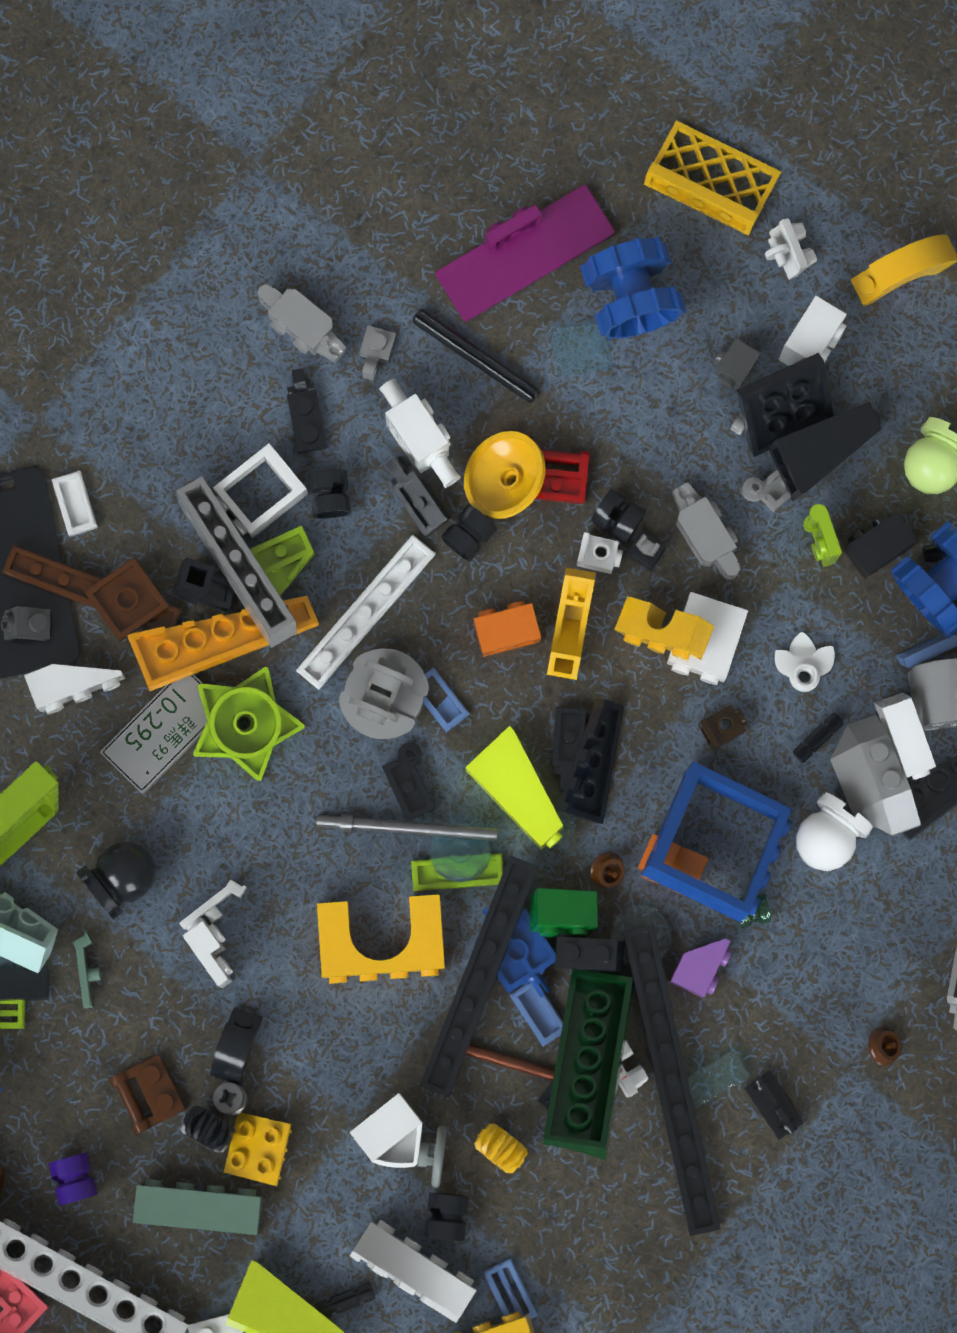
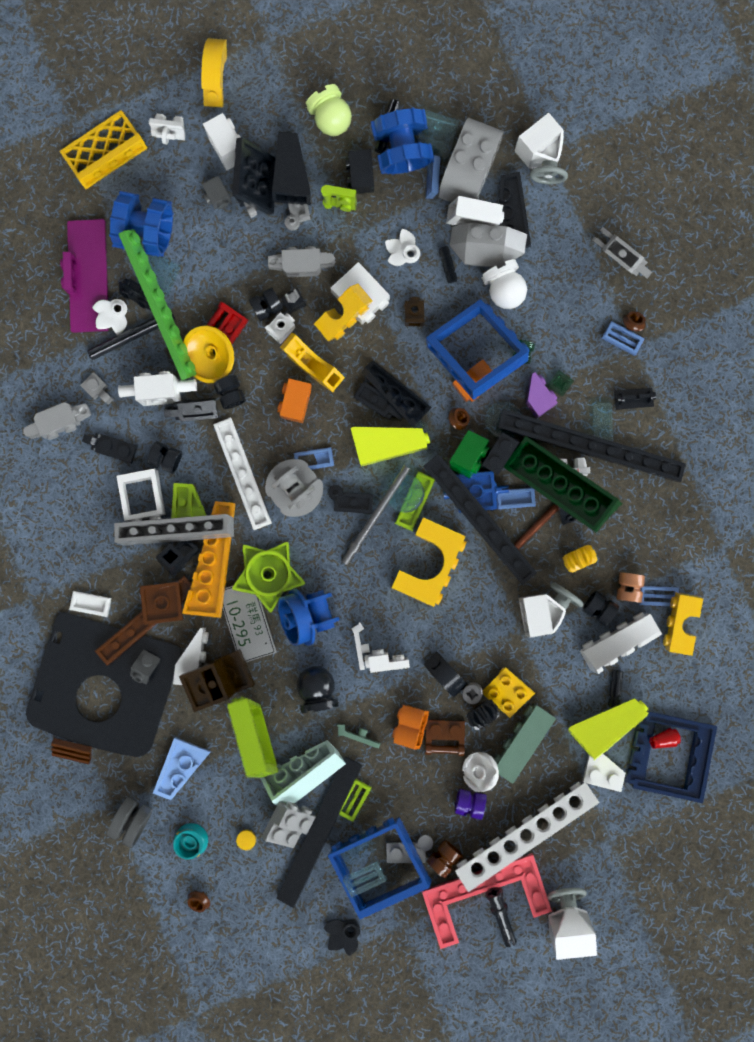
camera: 55 degrees left, 5 degrees up
(60, 732) = (217, 680): none -> dark brown bracket
(125, 1168) = (480, 772): none -> white tile
(137, 1036) = (410, 726): none -> orange brick
(203, 795) = (297, 619): none -> blue piece
(483, 313) = (110, 318): none -> white plate
(510, 1240) = (630, 580): none -> nougat wheel
(533, 372) = (157, 303): none -> bright green plate
(537, 320) = (131, 290): none -> black hinge
(737, 988) = (560, 383): none -> clear green tile
(851, 1037) = (622, 346): none -> medium blue tile

